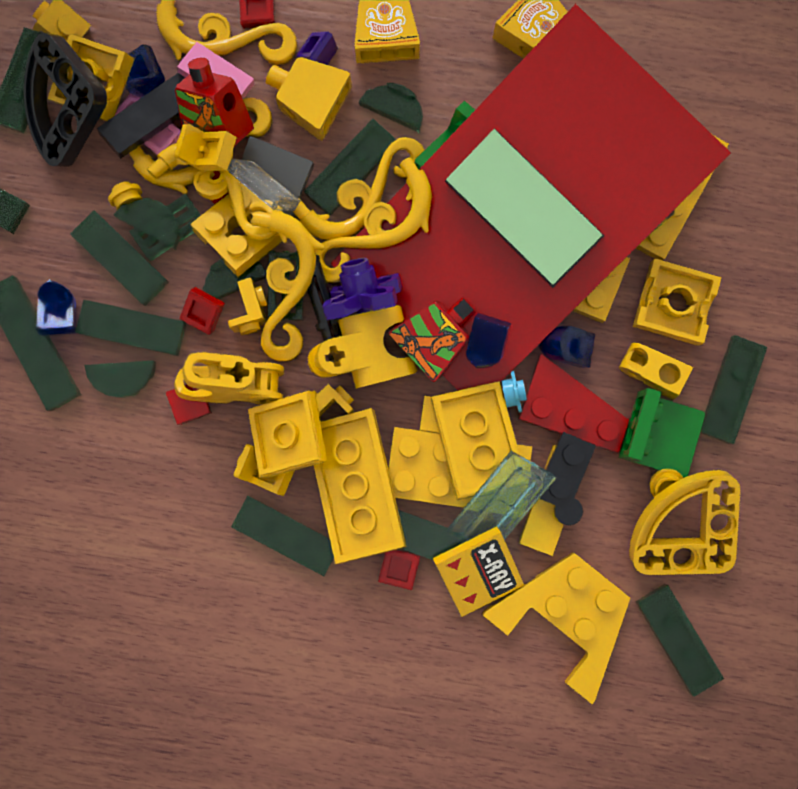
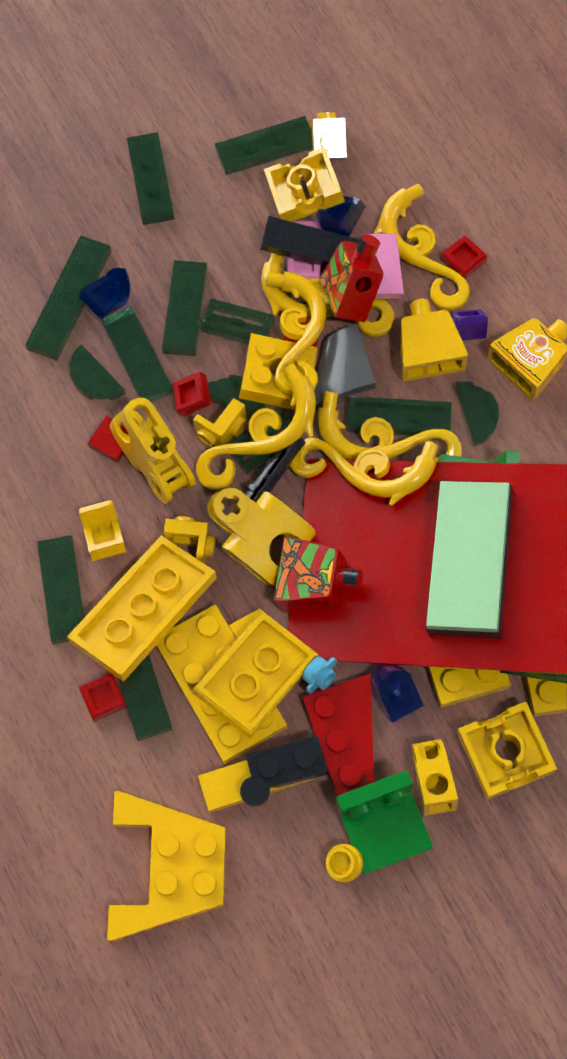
camera: 55 degrees right, 15 degrees down
(84, 99) = (285, 188): black beam -> none
(124, 193) = (235, 275): yellow plate -> none
(152, 219) = (233, 306): clear green tile -> none
(205, 149) = (314, 296): yellow bracket -> none
(263, 185) = (323, 359): clear tile -> none
(287, 434) = (142, 522): yellow tile -> none
(361, 290) = (301, 489): dark purple plant -> none
(479, 571) = (147, 757): yellow tile -> none
(487, 341) = (341, 617): clear blue plate -> none
(502, 498) = (216, 728): clear light blue piece -> none
(679, 640) = (219, 978): clear green tile -> none
(702, 547) = (312, 930): yellow beam -> none
(733, 389) = (473, 858): clear green tile -> none

